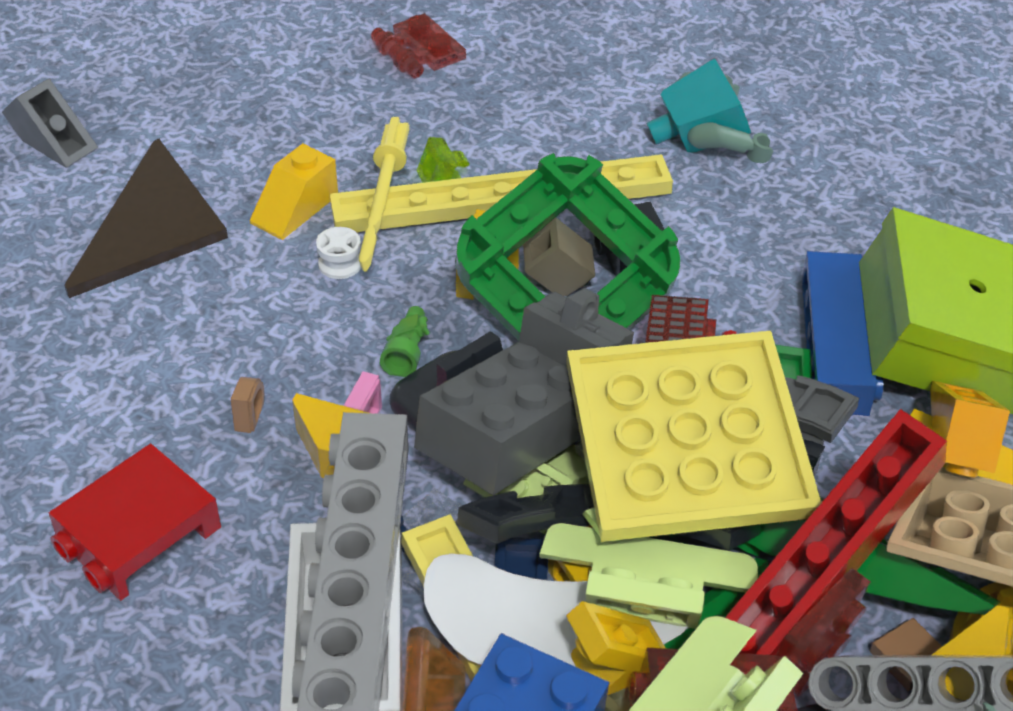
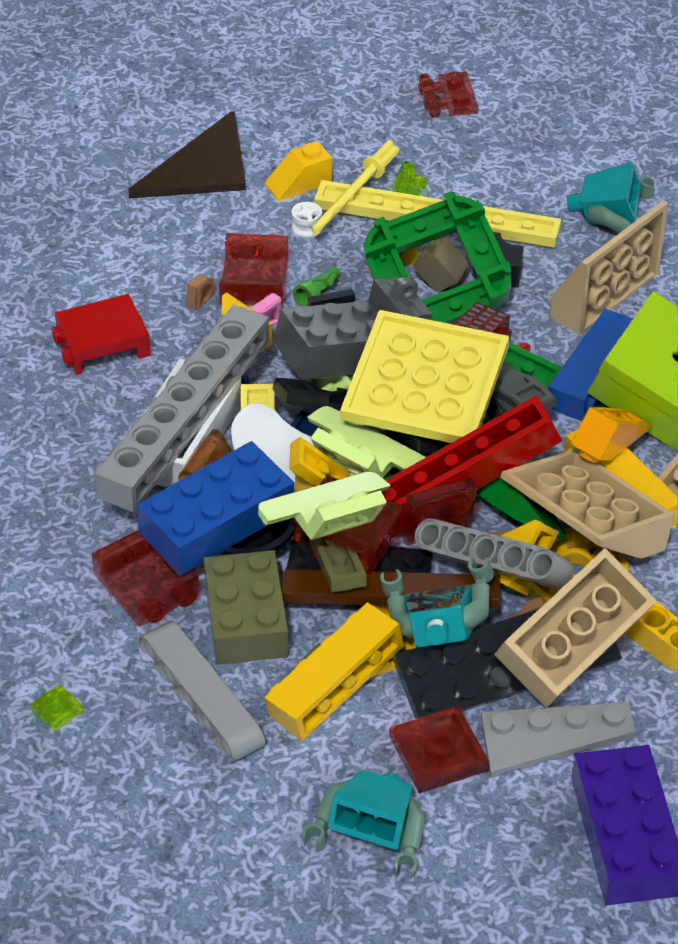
camera: 25 degrees right, 0 degrees up
(49, 124) = (168, 82): dark grey slope -> none
(307, 345) = (254, 267): none -> clear red panel
(776, 204) = (611, 272): none -> tan slope

